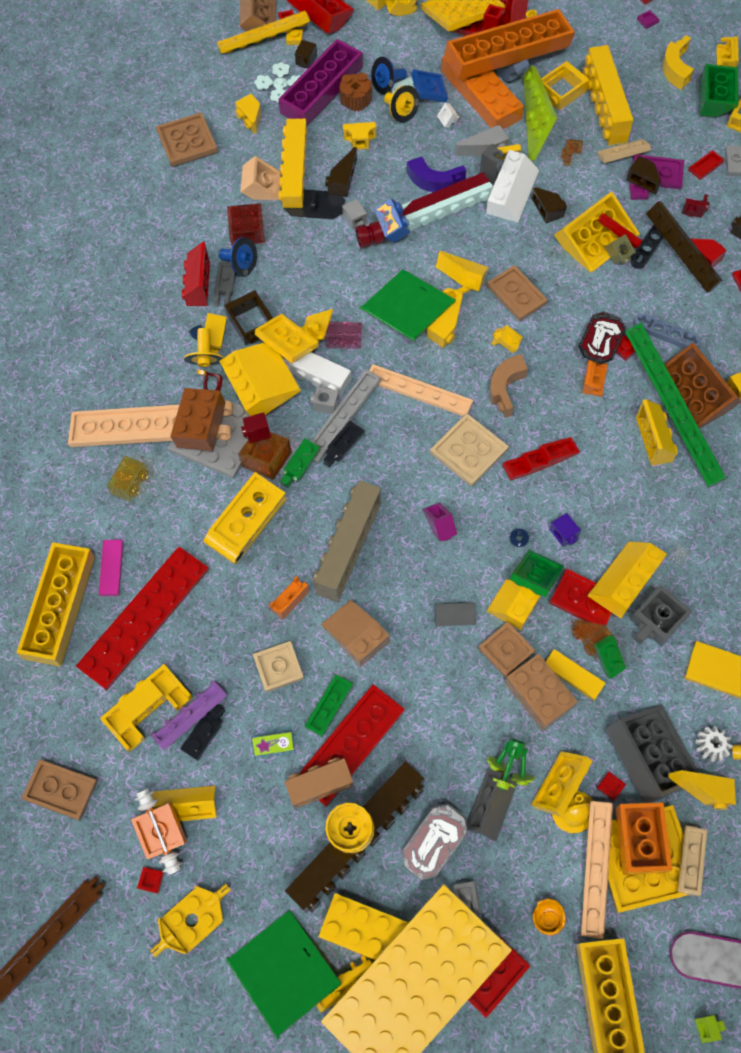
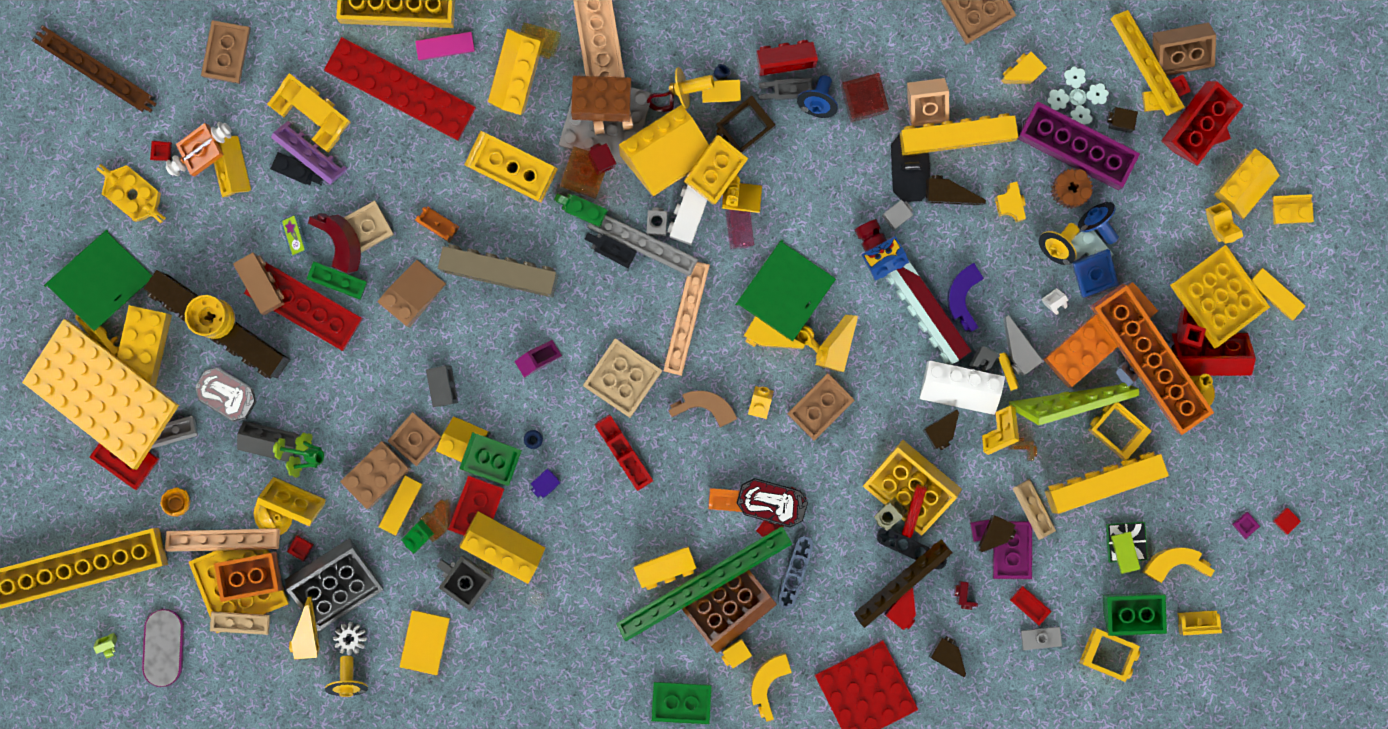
camera: 80 degrees right, 20 degrees up
(152, 499) = (515, 71): none -> yellow slope
(287, 686) = (345, 240): none -> dark red arch
(559, 157) = (1006, 431): none -> yellow plate
(656, 95) = (1138, 533): none -> tile
(666, 92) = (1125, 552): none -> lime tile

